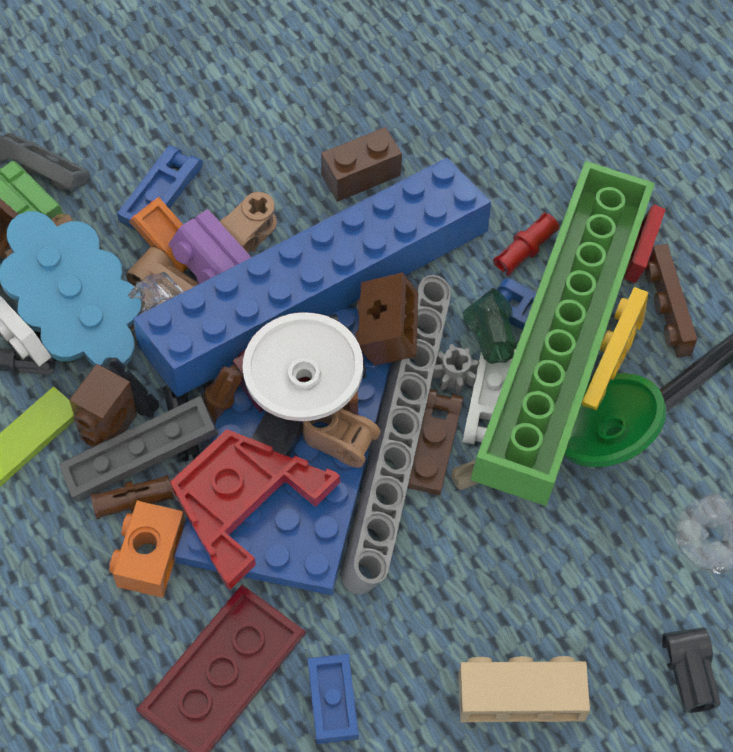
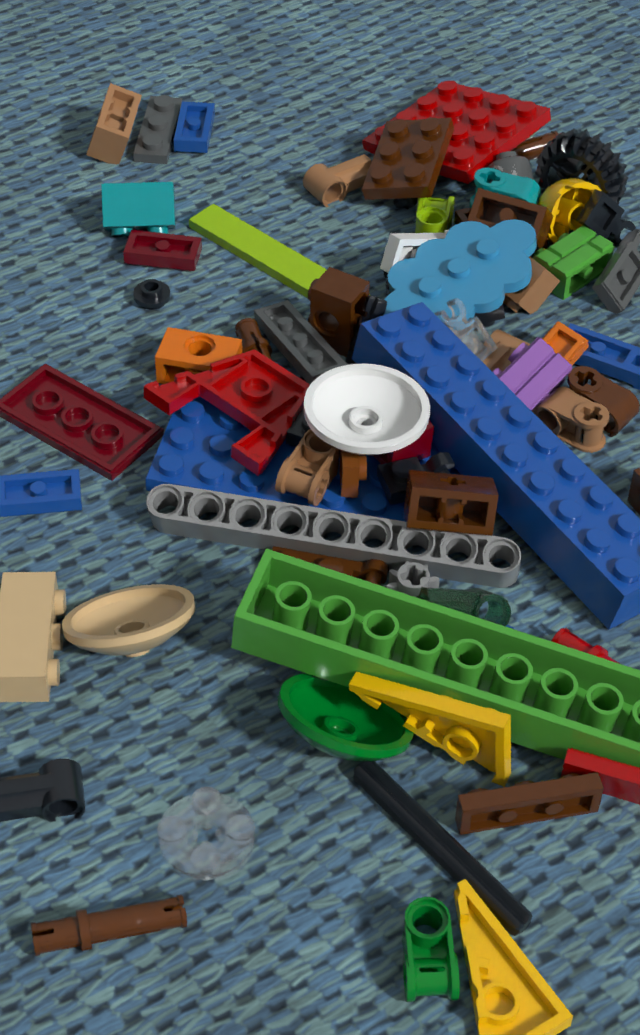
camera: 90 degrees right, 15 degrees down
(29, 615) = (151, 294): none -> black plate
(224, 195) = (618, 400): none -> reddish brown piece
(486, 592) = (129, 619): none -> tan dish

